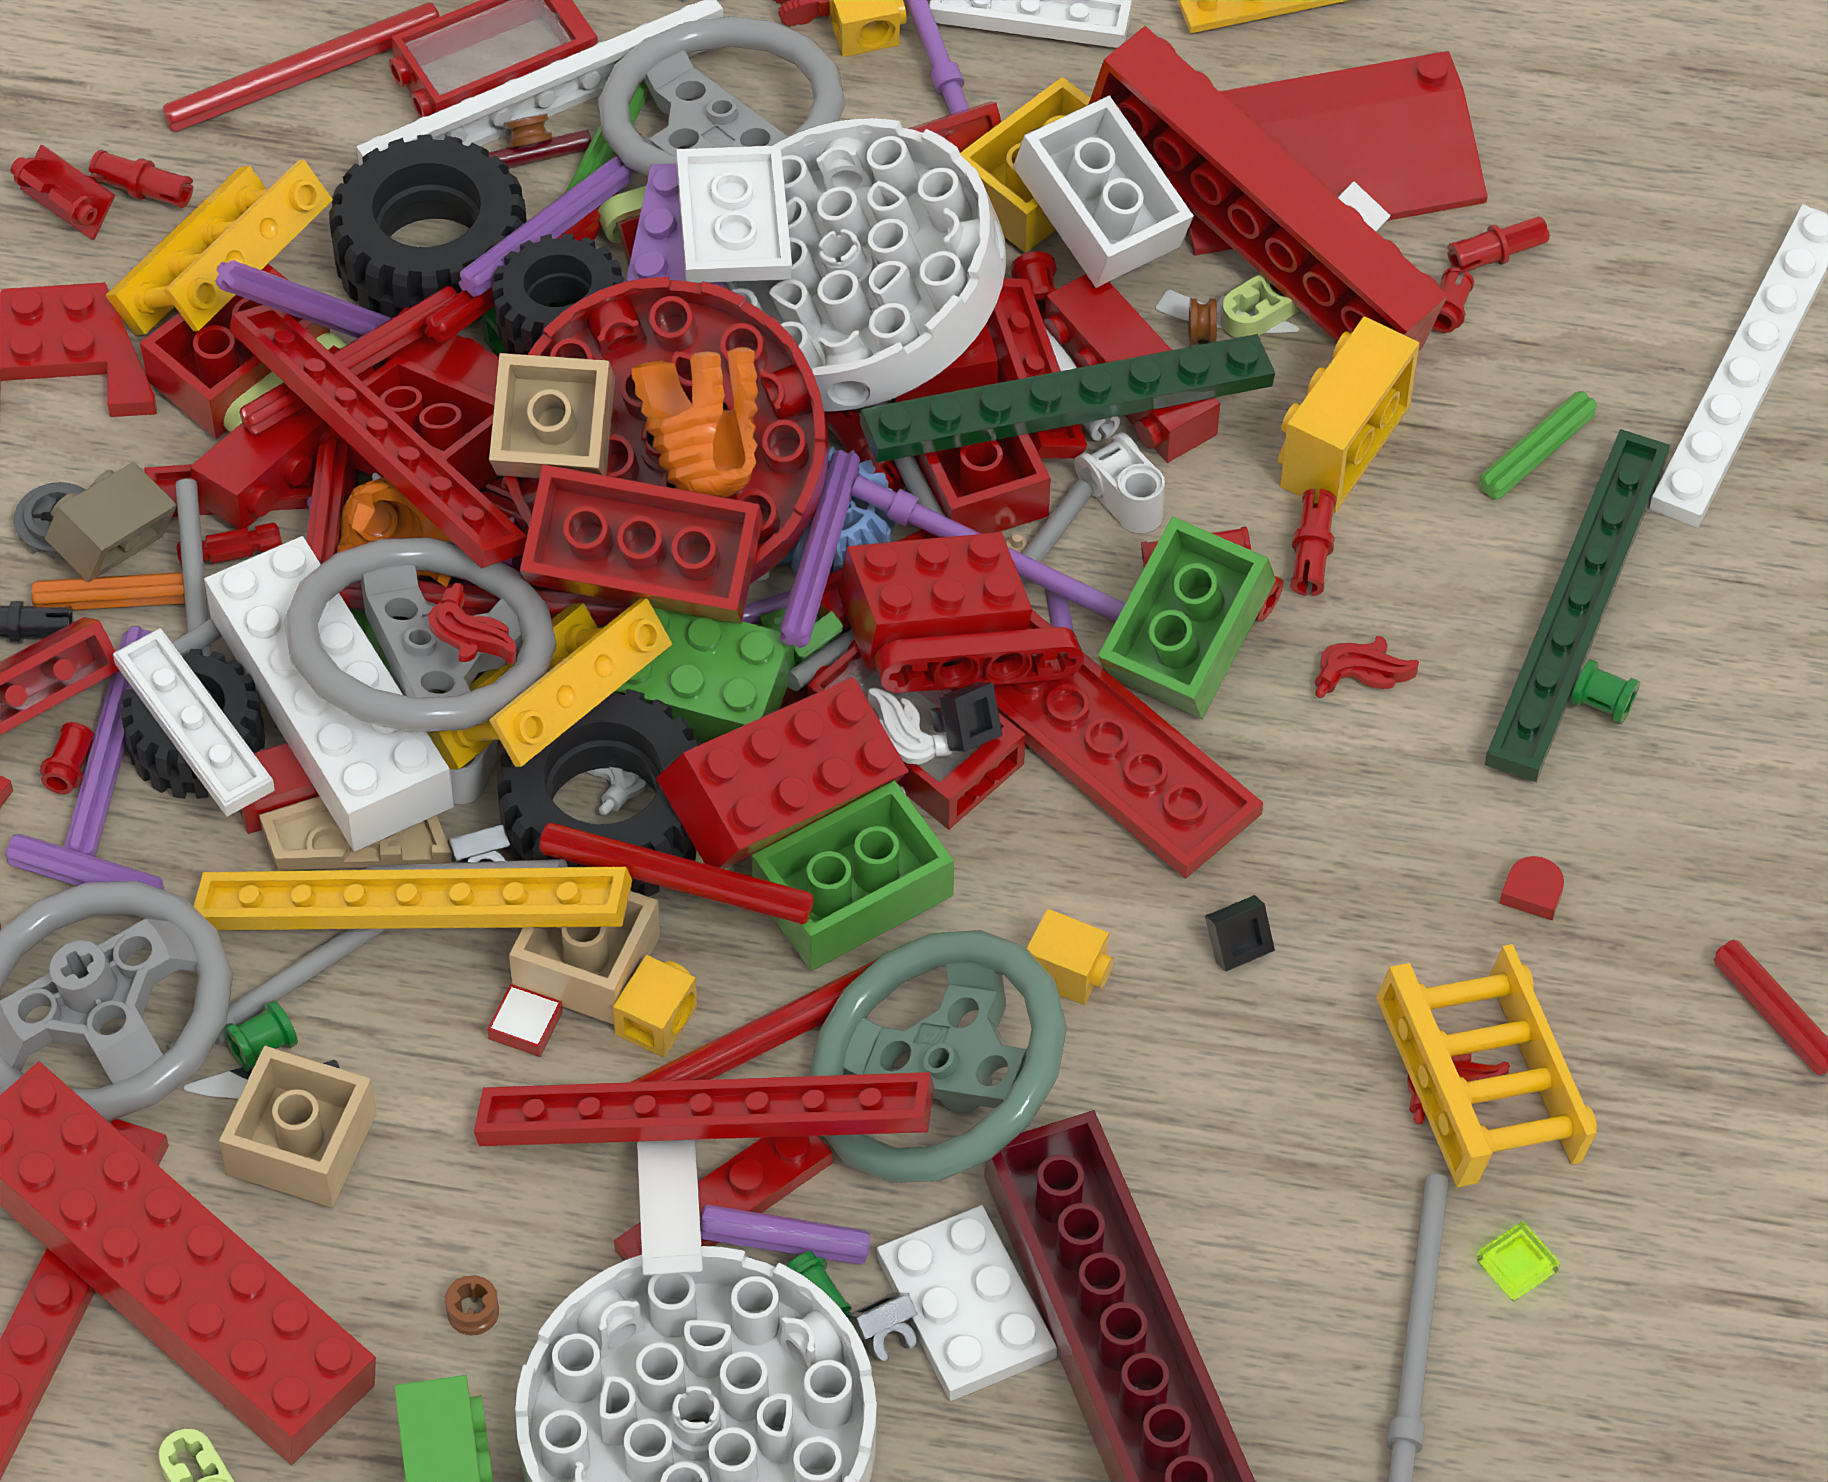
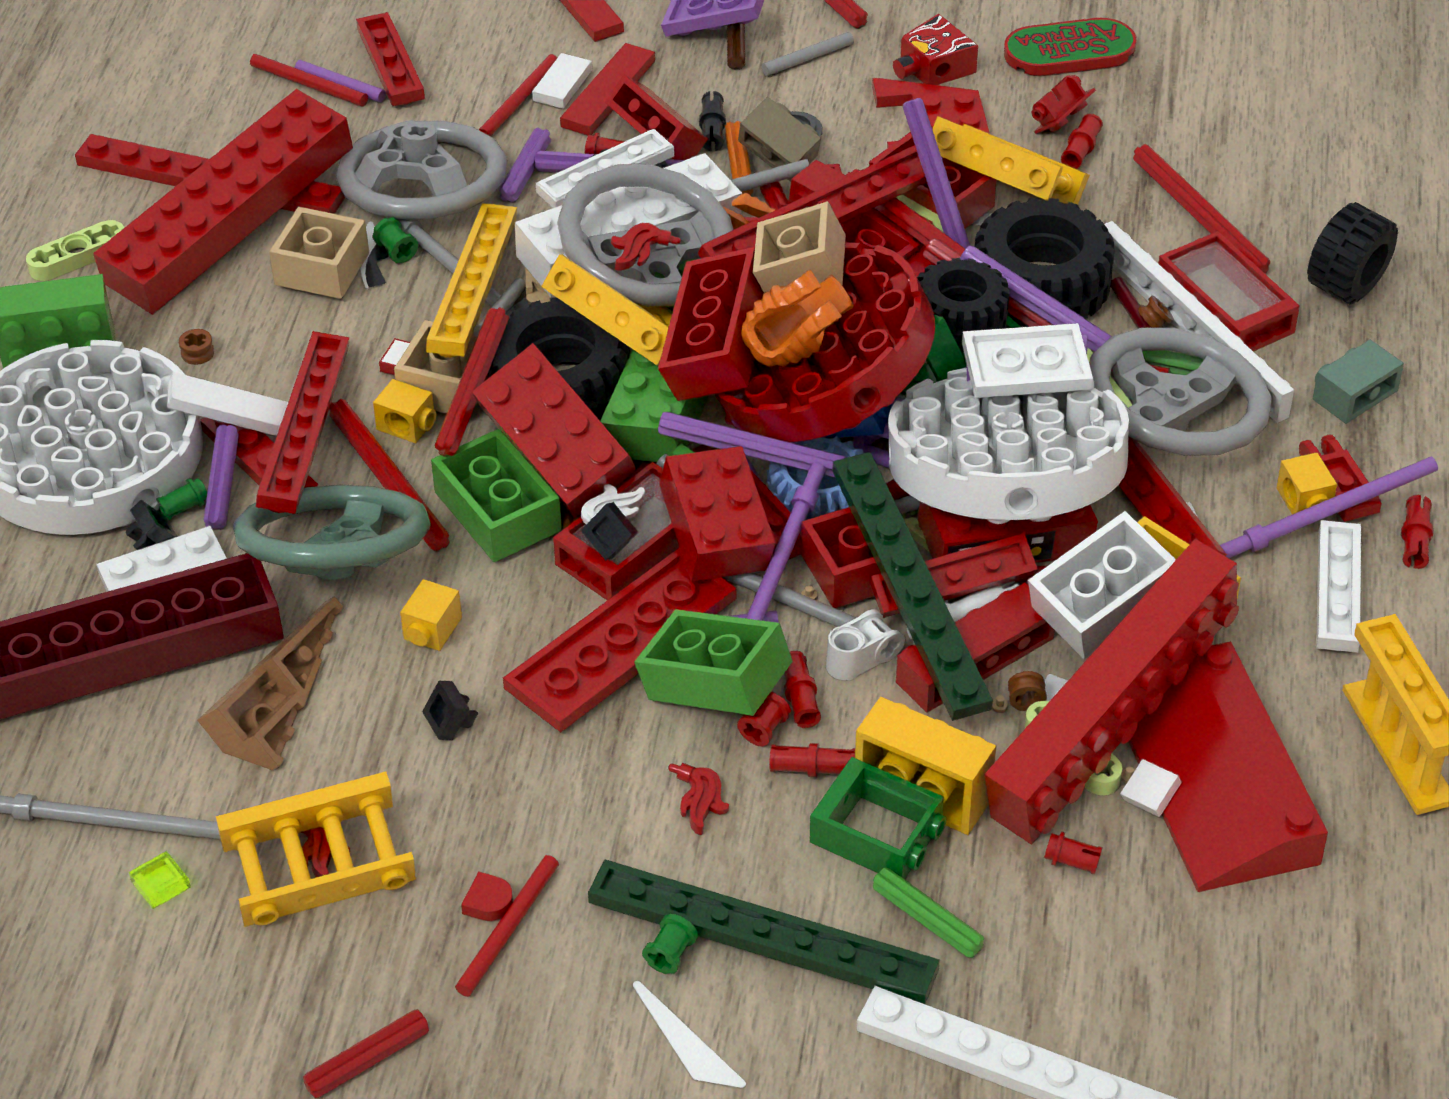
camera: 90 degrees right, 10 degrees down
(1040, 656) = (666, 541): red beam -> none
(1216, 1155) = (260, 709): none -> medium nougat wedge
(1393, 515) = (890, 792): none -> green window
(1497, 244) = (1140, 888): red axle -> none
(1575, 867) = (506, 926): none -> red bar
(1745, 680) = (695, 1055): none -> white sticker

